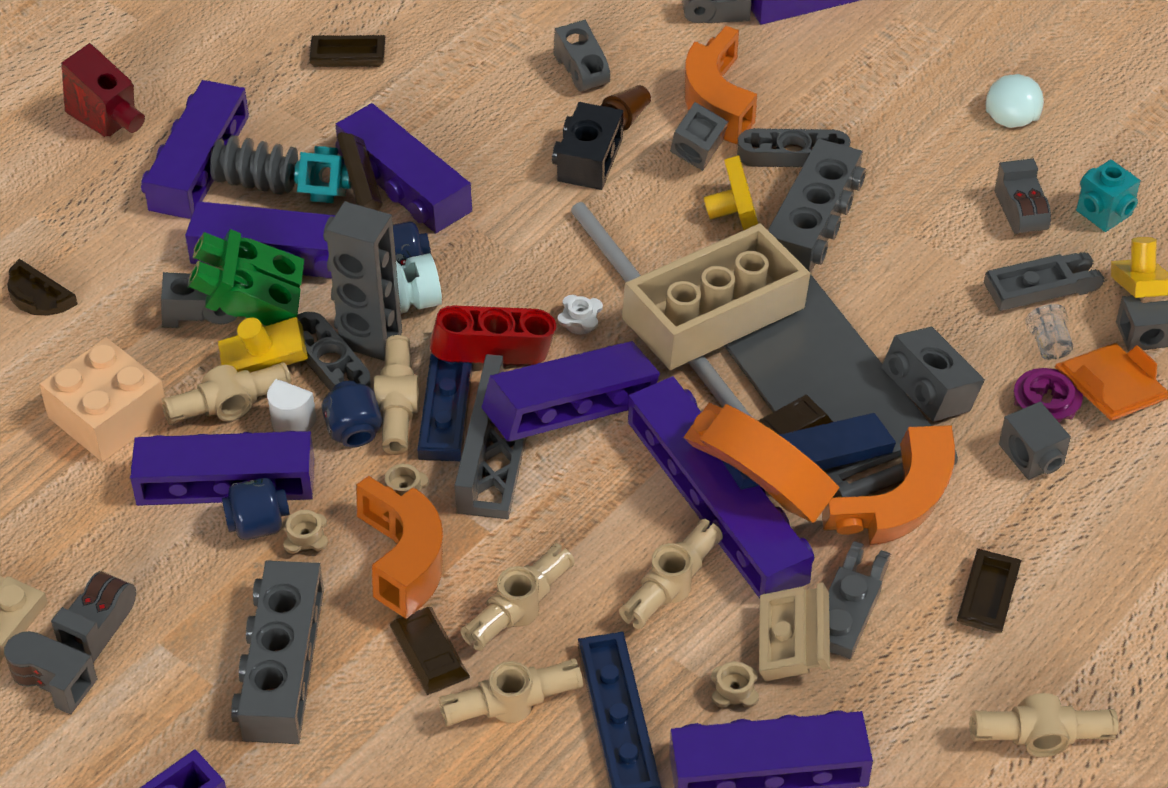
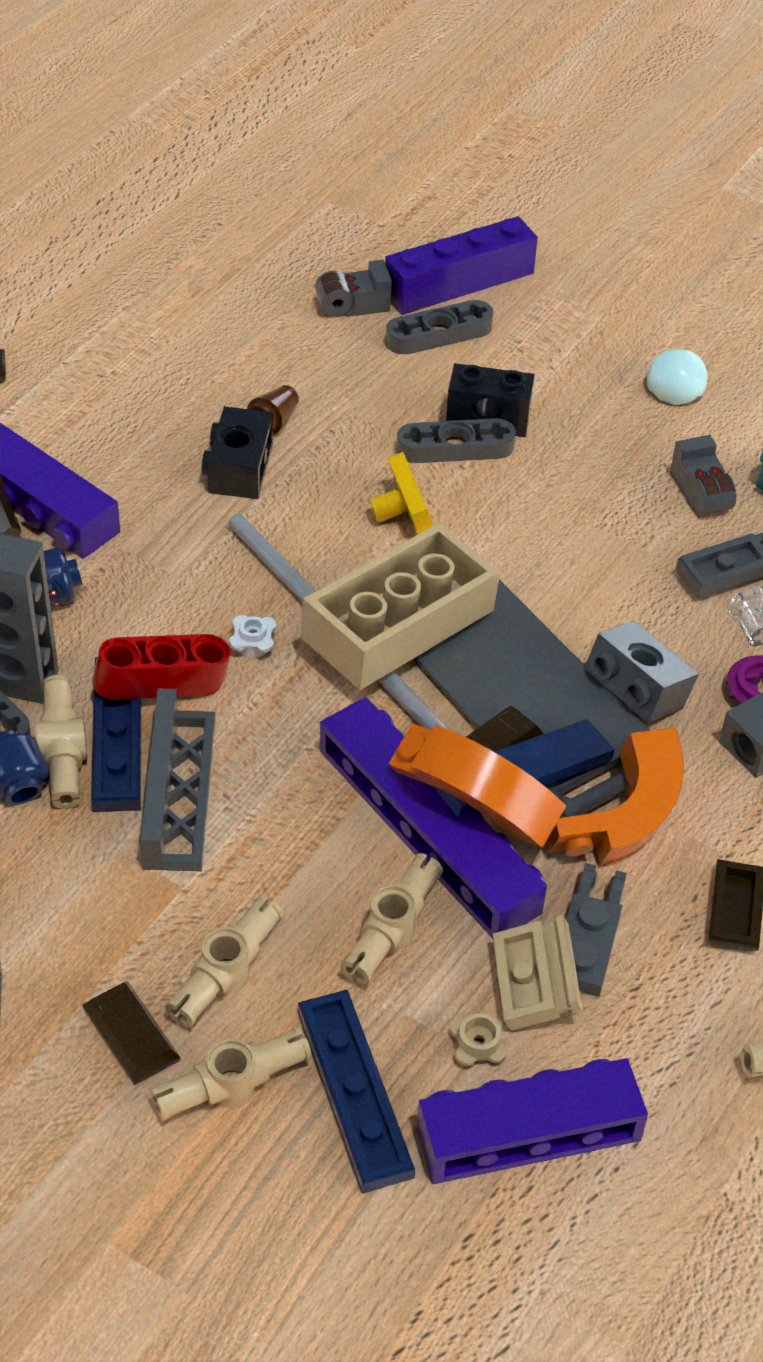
camera: 10 degrees left, 0 degrees up
(405, 476) = (80, 833): tan plate -> none
(413, 568) = (103, 940): orange arch -> none
(418, 283) = (73, 615): light aqua wheel -> none
(566, 390) = (251, 722): dark purple brick -> none
(583, 58) = (220, 361): dark grey leg -> none
(698, 136) = (356, 434): dark grey brick -> none
(709, 89) = (361, 393): orange arch -> none
(760, 42) = (414, 331): none -> dark grey beam
(817, 201) = (492, 492): dark grey brick -> none
(831, 106) = (490, 394): none -> black brick

